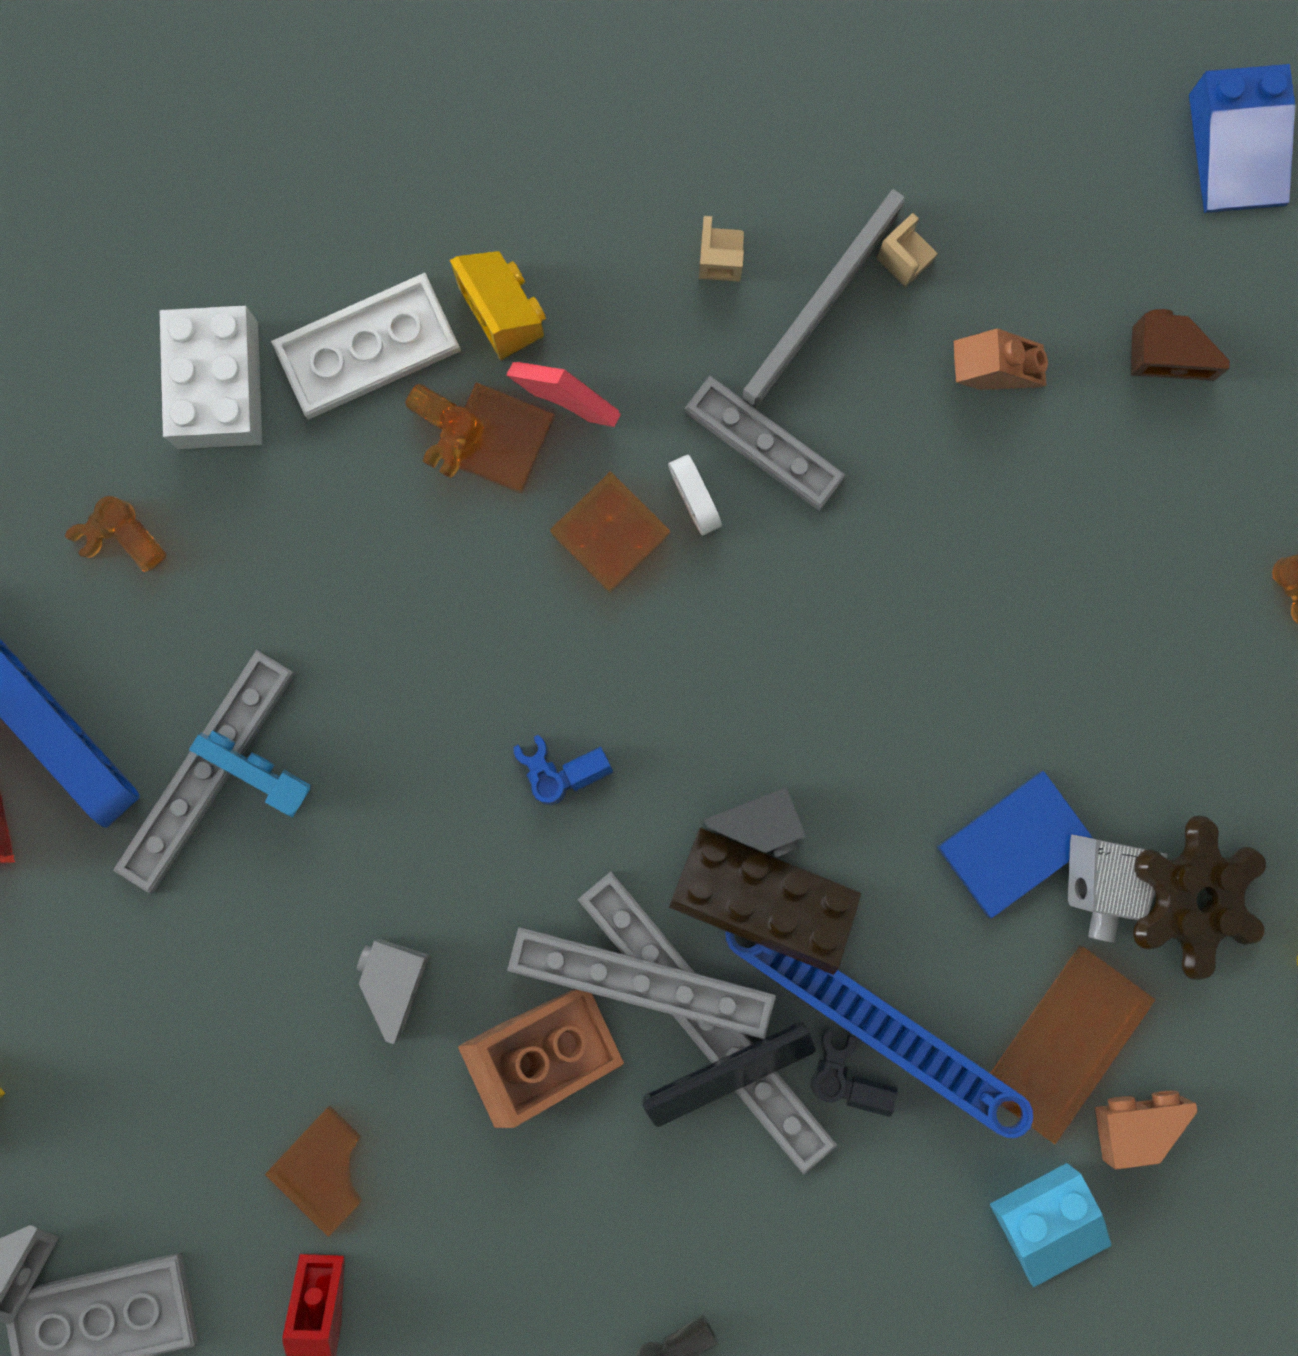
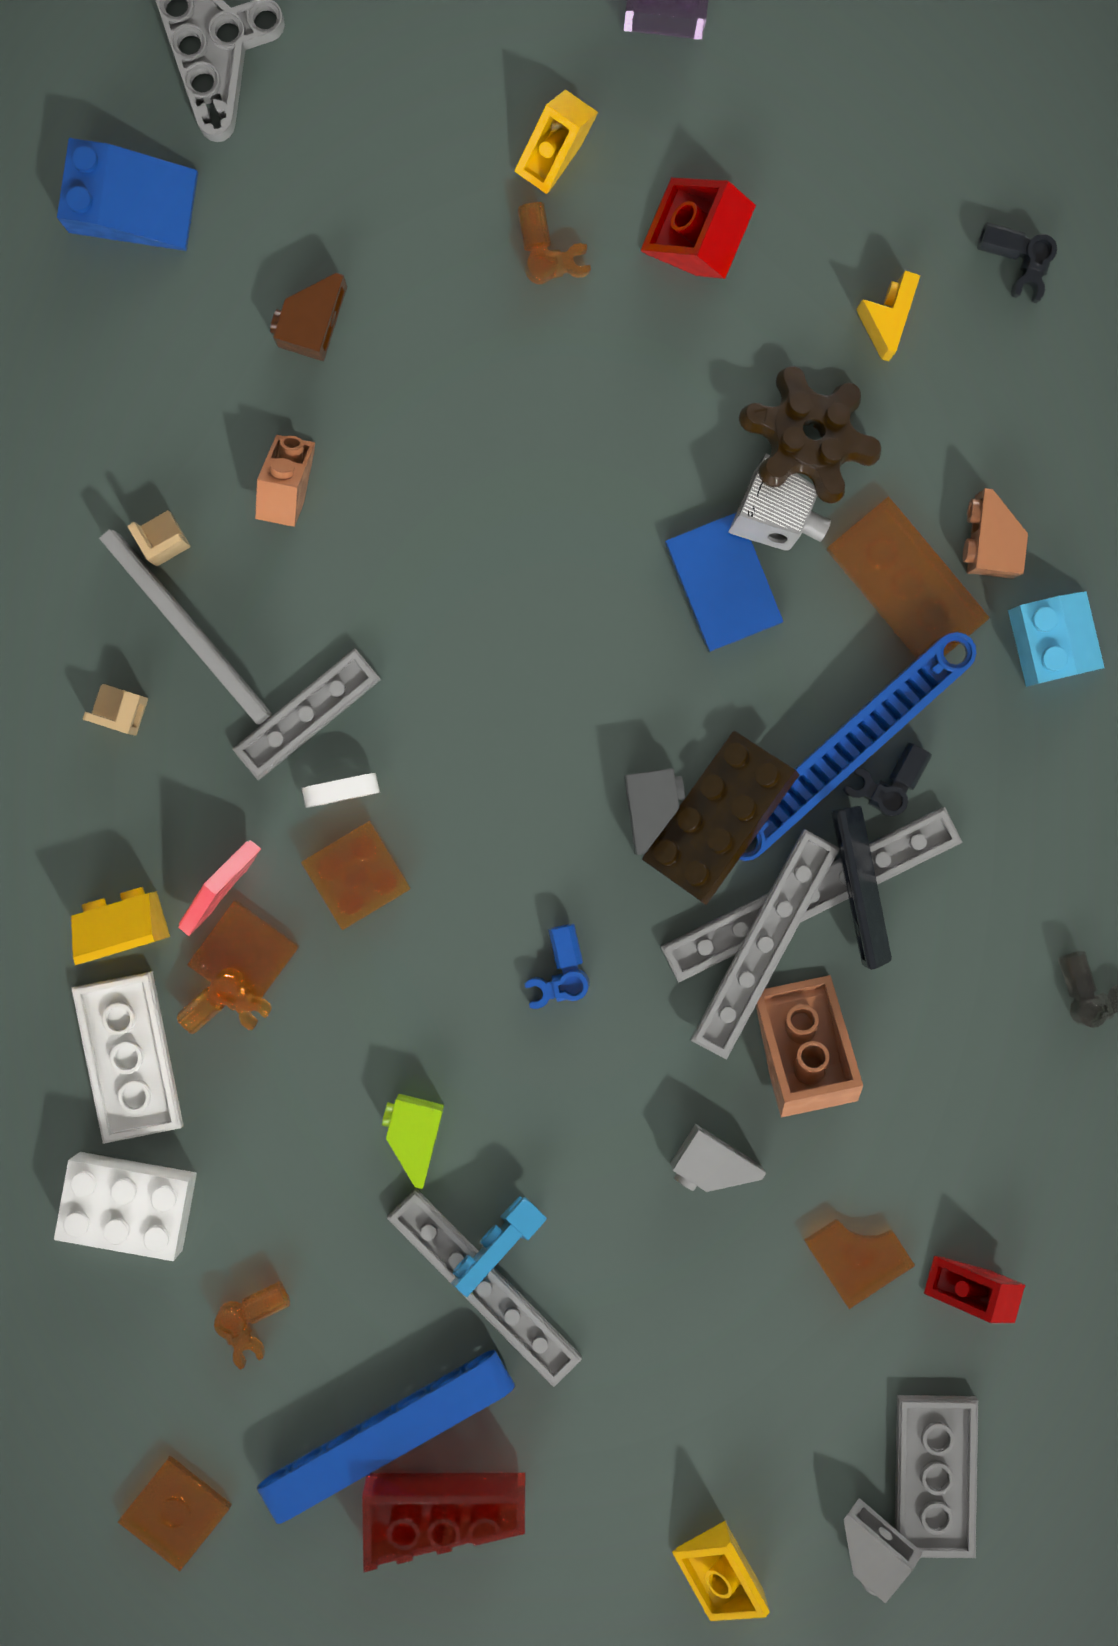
camera: 75 degrees left, 5 degrees up
(351, 655) = (413, 1133): none -> lime slope

